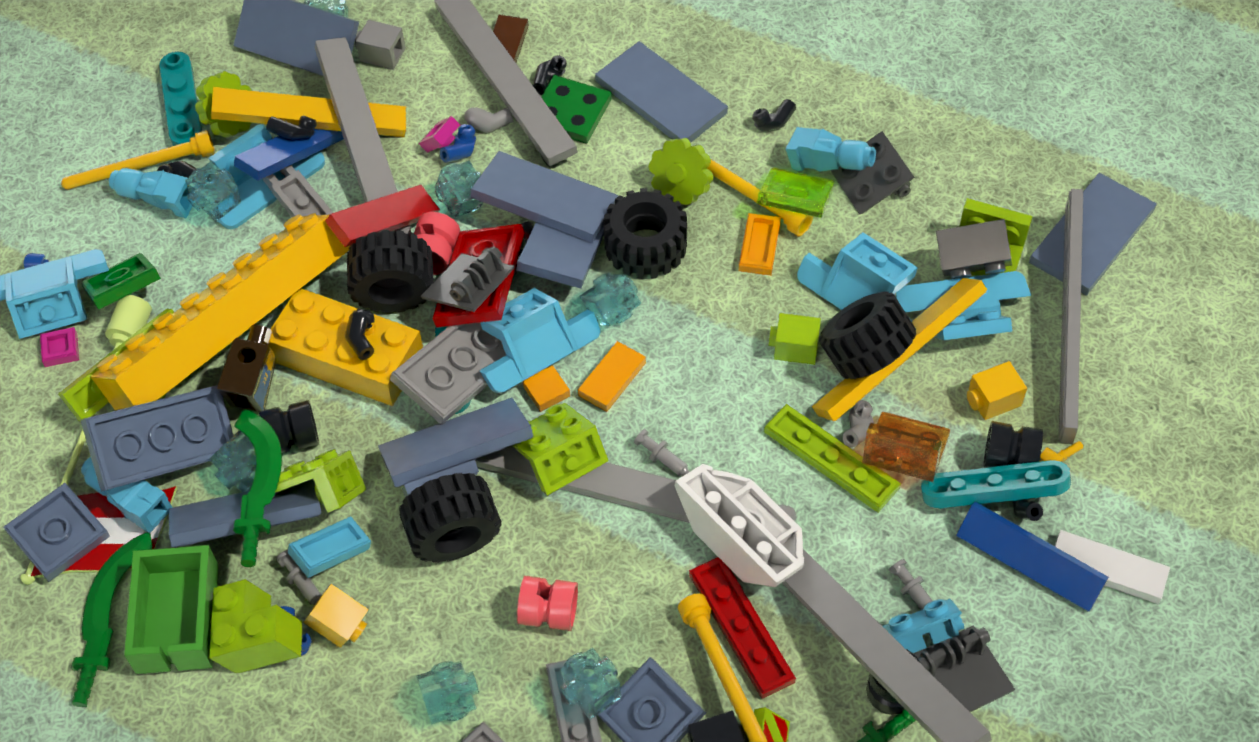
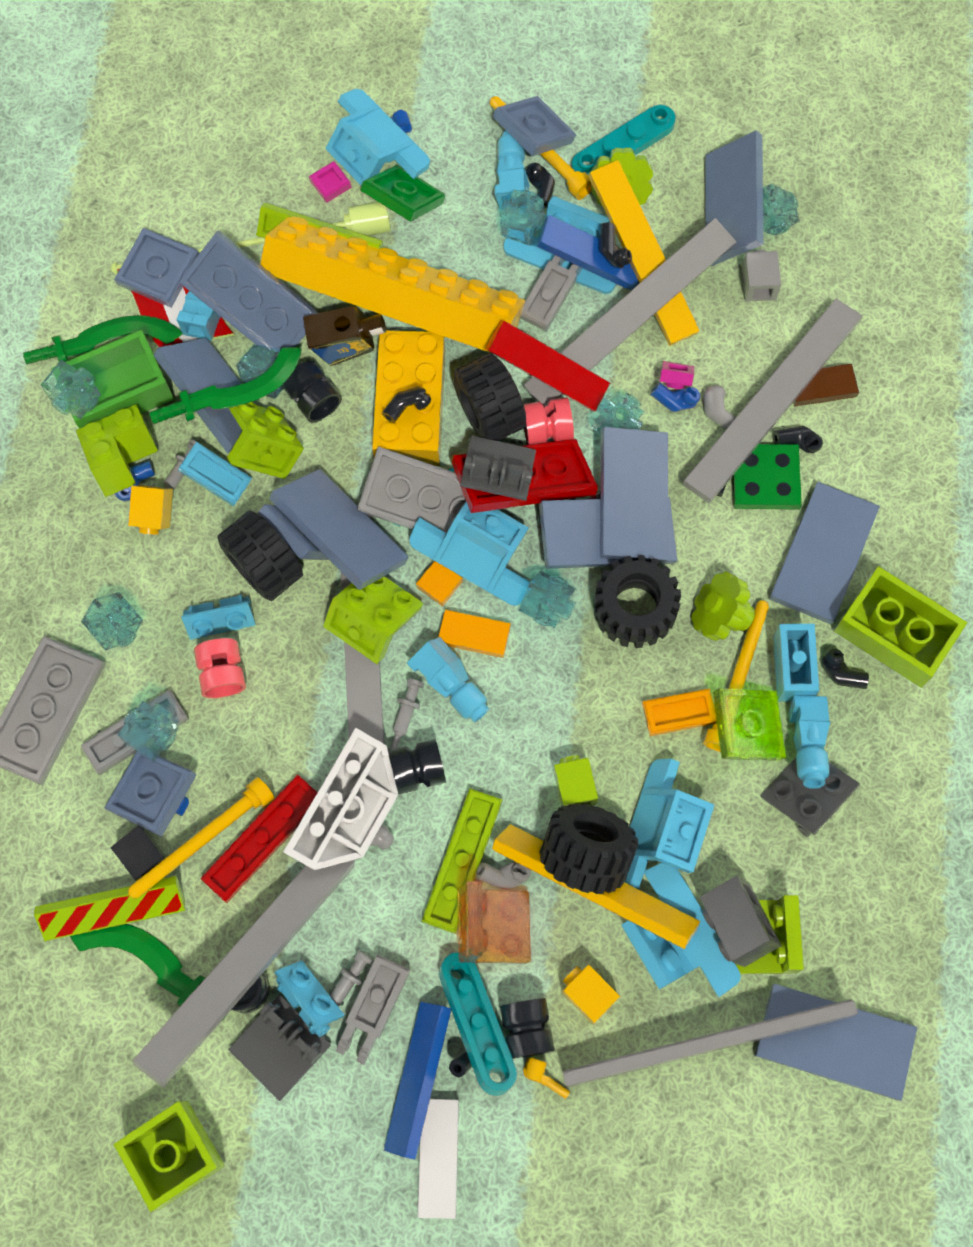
camera: 70 degrees right, 15 degrees up
(119, 154) = (534, 125): none -> sand blue tile
(173, 627) = (71, 389): none -> clear light blue brick
(490, 578) = (207, 620): none -> medium azure hinge
(649, 405) = (448, 677): none -> medium azure piece
(729, 449) = (417, 766): none -> black wheel
(755, 138) = (795, 661): none -> medium azure brick
(756, 60) = (900, 627): none -> lime brick
(949, 575) = (374, 1005): none -> light grey hinge

